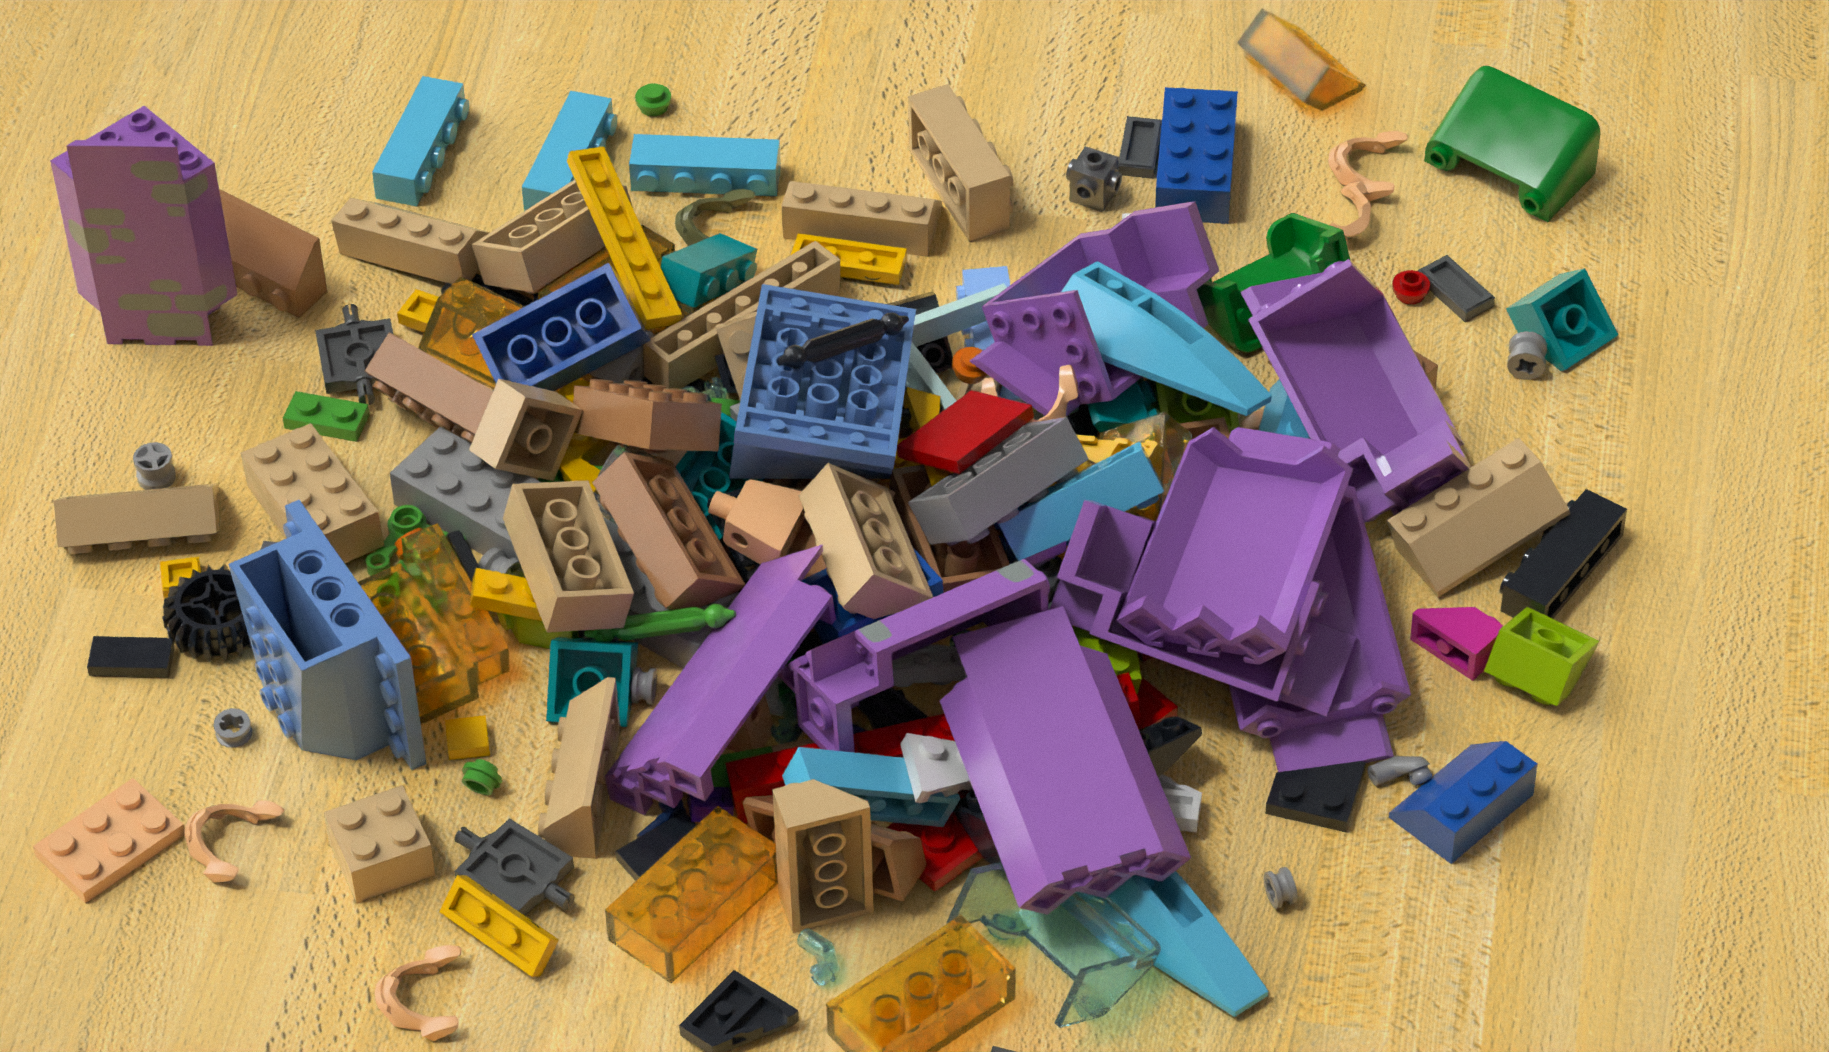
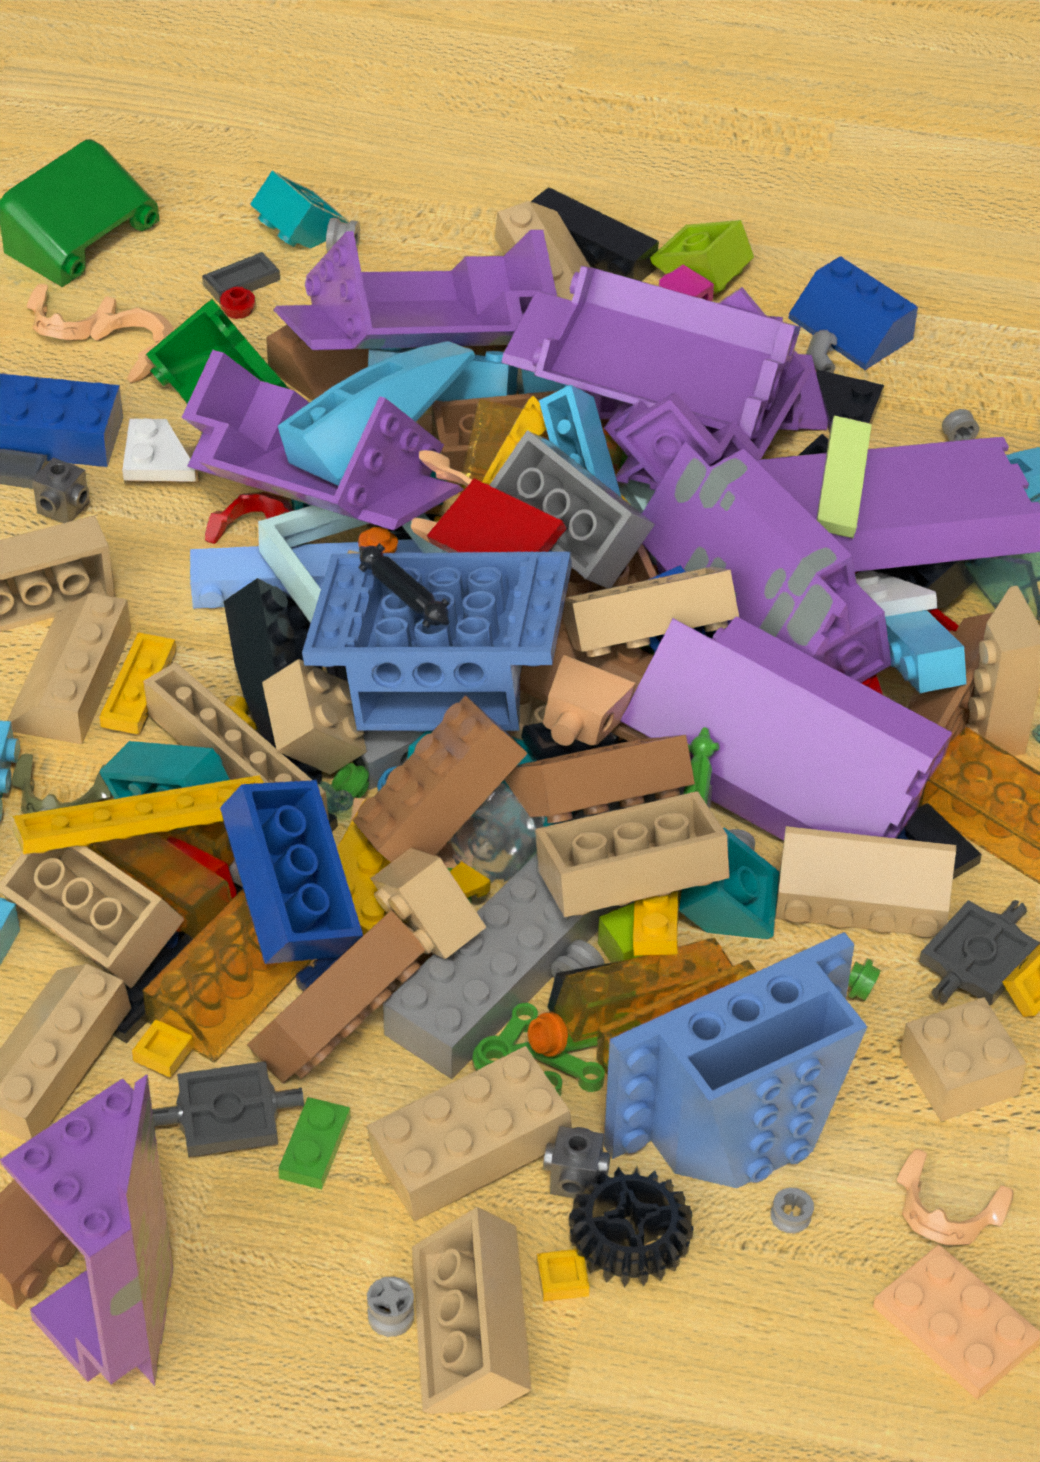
camera: 90 degrees left, 0 degrees up
(130, 656) = (686, 1317): black tile -> none
(1050, 686) = (843, 476): none -> yellowish green tile

